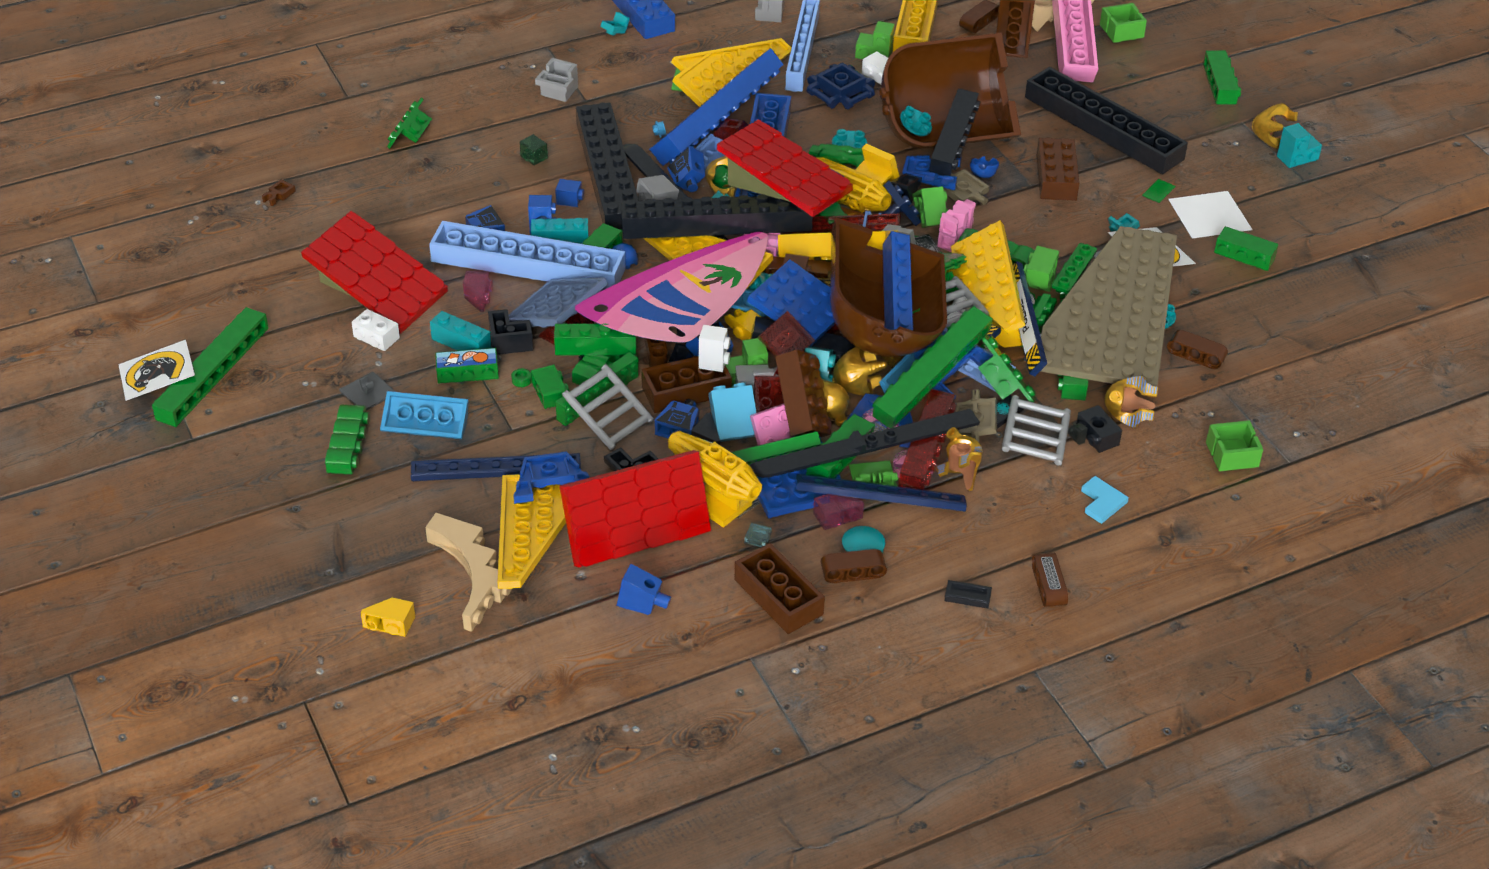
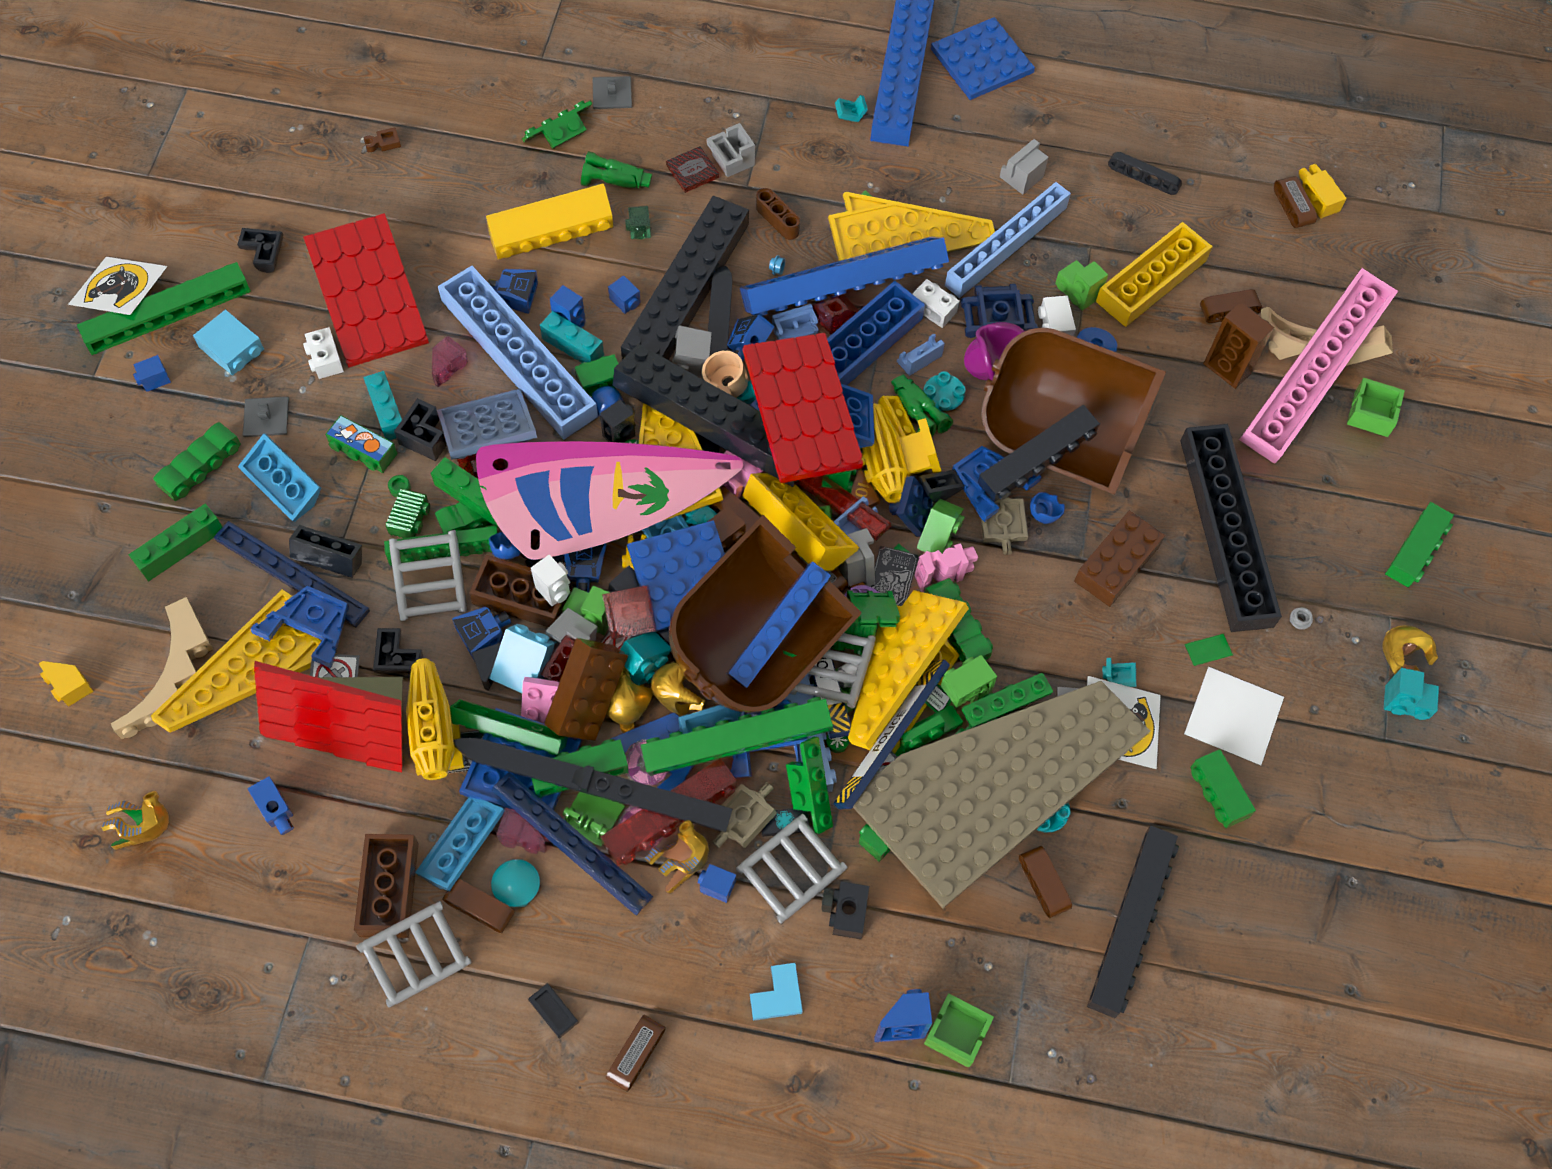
camera: 35 degrees right, 20 degrees up
(246, 407) = (151, 373): none -> blue brick
(254, 290) = (265, 243): none -> black brick
(290, 360) = (228, 342): none -> medium azure brick
(386, 491) = (176, 542): none -> green brick
(426, 89) = (612, 92): none -> dark grey piece
(468, 175) = (550, 221): none -> yellow slope
(481, 130) = (616, 172): none -> green piece
(513, 434) = (325, 551): none -> black brick
(536, 107) = (692, 169): none -> tile
(556, 657) = (150, 818): none -> pearl gold piece
(629, 101) = (777, 213): none -> reddish brown beam
(650, 253) = (618, 423): none -> black brick
(653, 357) = (502, 547): none -> blue hair
(697, 186) = (725, 365): none -> light nougat piece
(758, 535) = (434, 807): clear light blue tile -> none
(798, 94) = (938, 303): none -> white brick
(802, 538) = (459, 843): none -> dark azure slope
(813, 130) = (921, 355): none -> medium blue hinge
(819, 601) = (390, 935): none -> light grey bar
(863, 102) = (988, 347): none -> magenta piece
(916, 121) = (1027, 409): teal dish -> none
(999, 463) = (717, 883): none -> blue brick
(1121, 400) = (904, 893): piece -> none
(1195, 146) = (1305, 614): none -> light grey plate
(1202, 450) = (907, 1019): none -> blue slope
(1270, 340) = (1132, 923): none -> black brick

